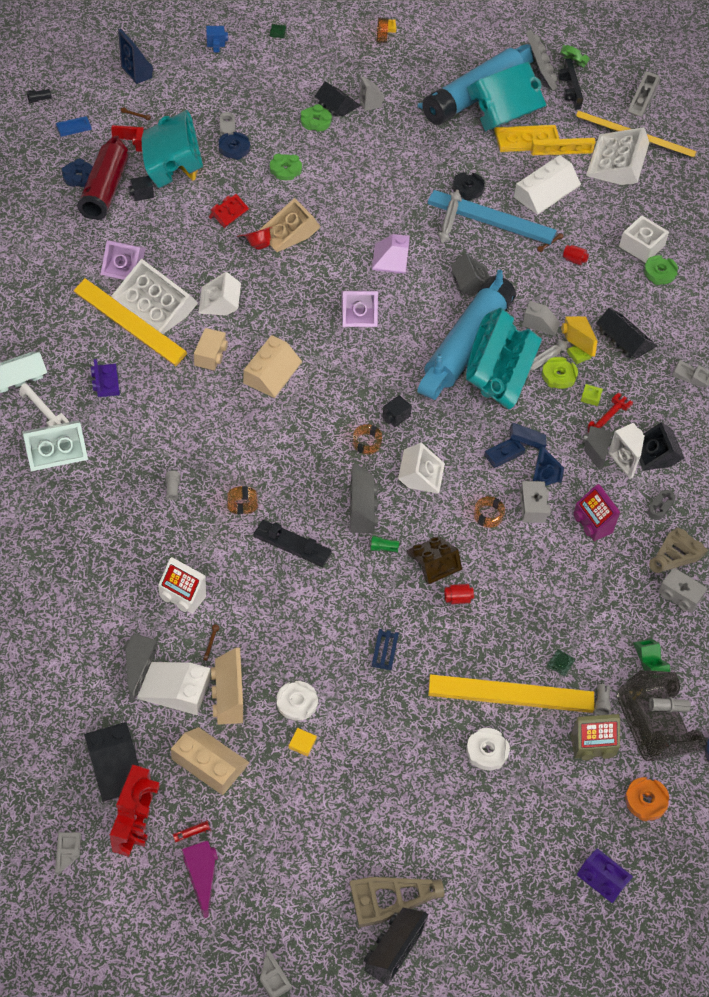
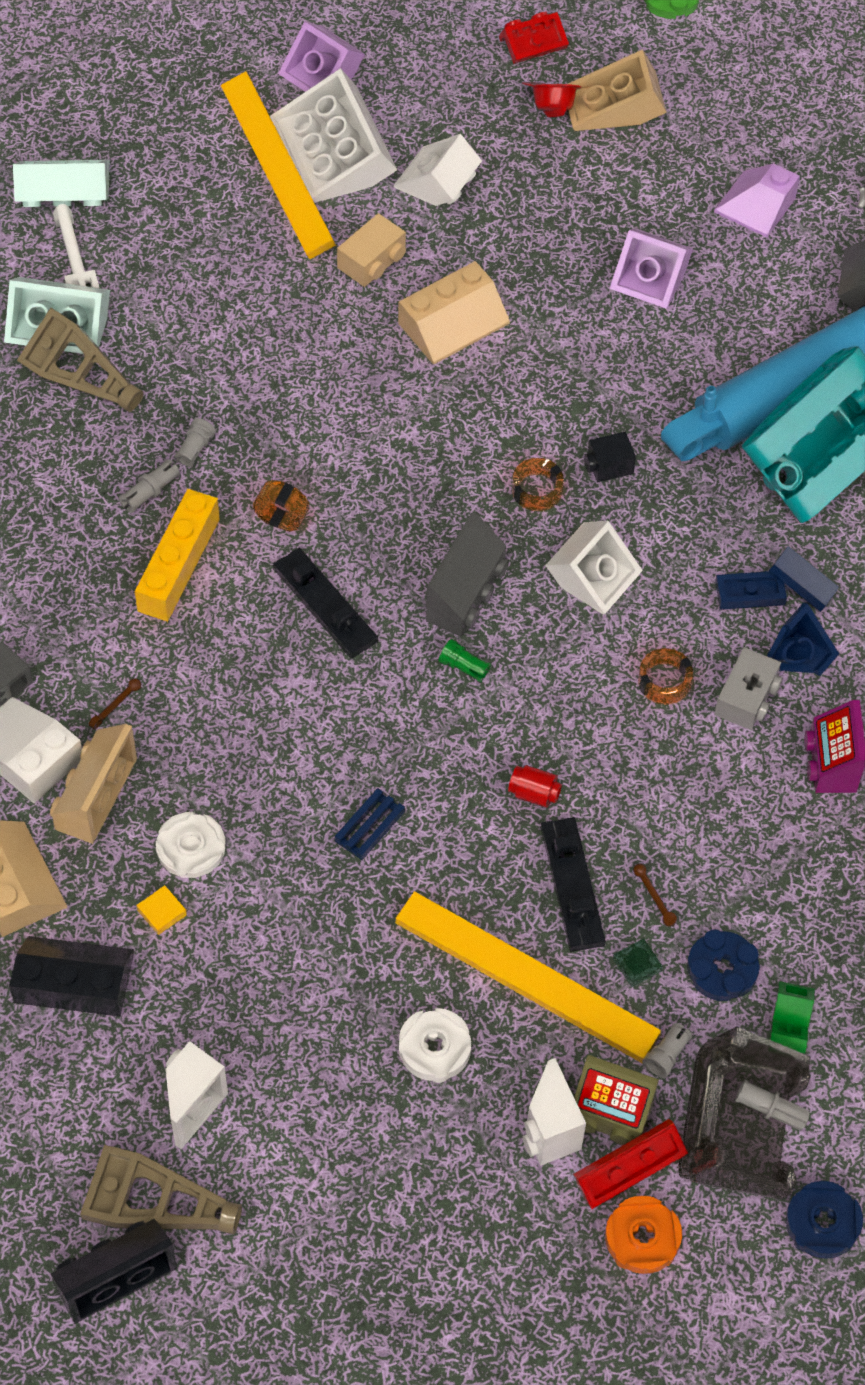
camera: 30 degrees right, 5 degrees up
(61, 462) = (49, 343): none -> dark tan plate
(106, 379) = (188, 240): dark purple bracket -> none
(161, 518) = (149, 486): none -> light grey pin
(182, 586) = (114, 602): slope -> none
(201, 544) = (177, 555): none -> yellow brick
(276, 798) = (71, 976): none -> black slope
(380, 829) = (194, 1090): none -> white slope
(437, 558) = (532, 716): dark brown bracket -> none
(506, 637) = (572, 885): none -> black hinge
(562, 634) = (669, 918): none -> reddish brown hinge
(572, 757) = (554, 1119): none -> white slope
(604, 875) = (500, 1318): dark purple bracket -> none
(610, 638) = (721, 946): none -> dark blue plate
(621, 765) = (630, 1163): none -> red tile

